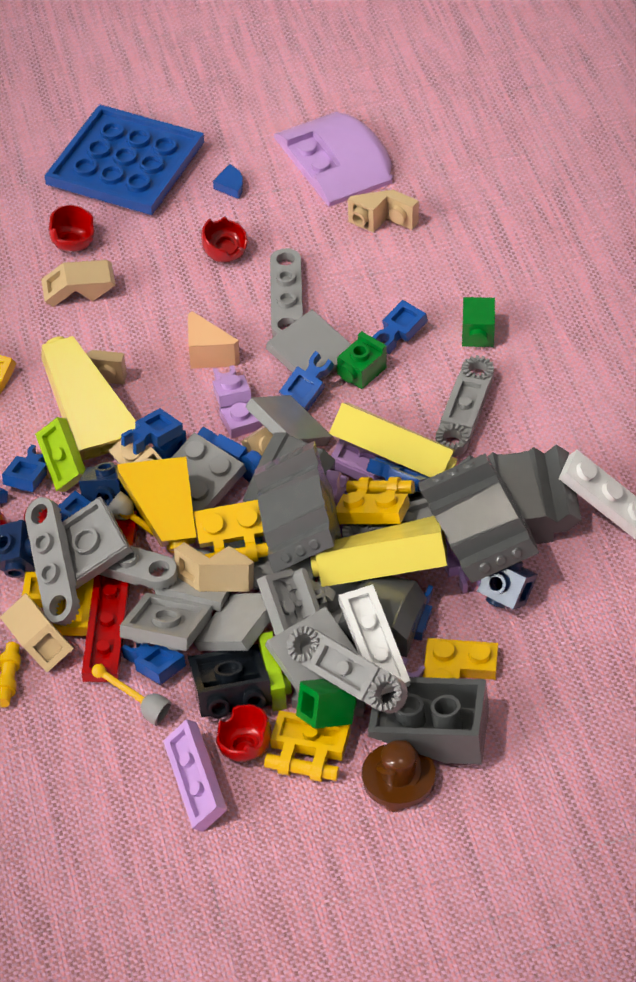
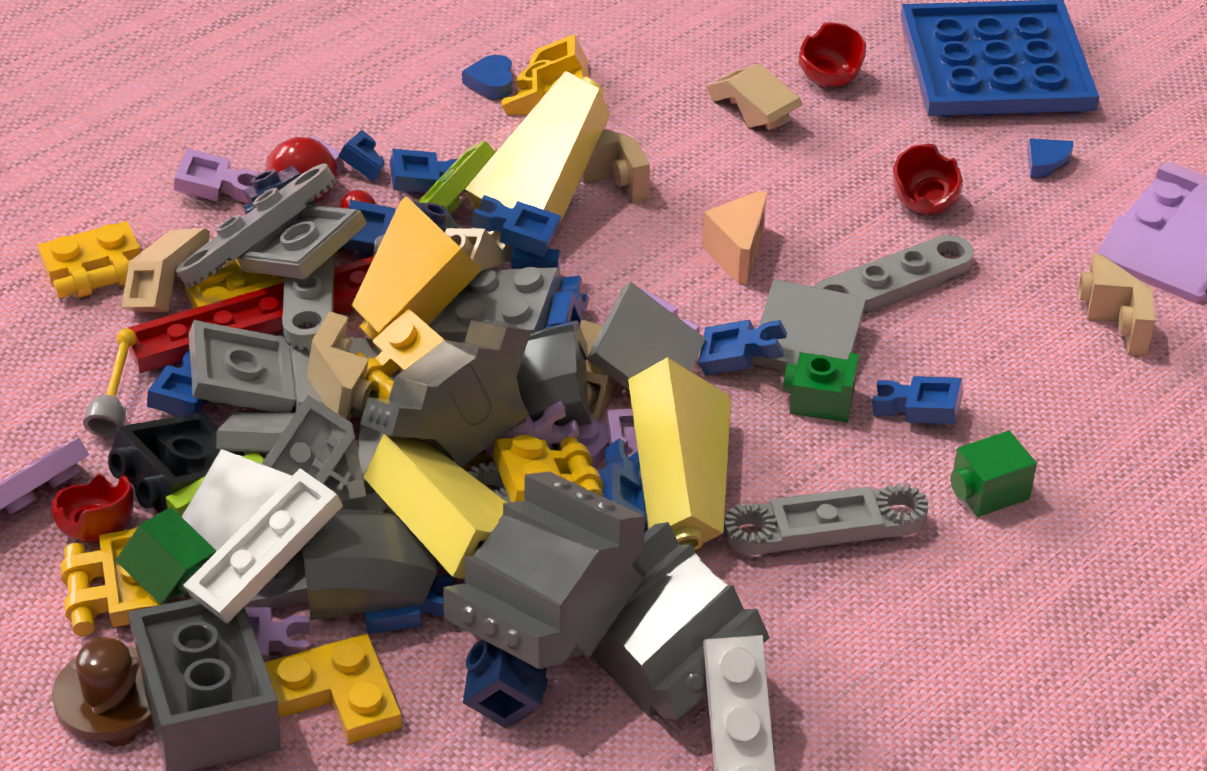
camera: 60 degrees right, 5 degrees down
(230, 387) = (681, 285): lavender plate -> none
(347, 669) = (192, 537): light grey plate -> none

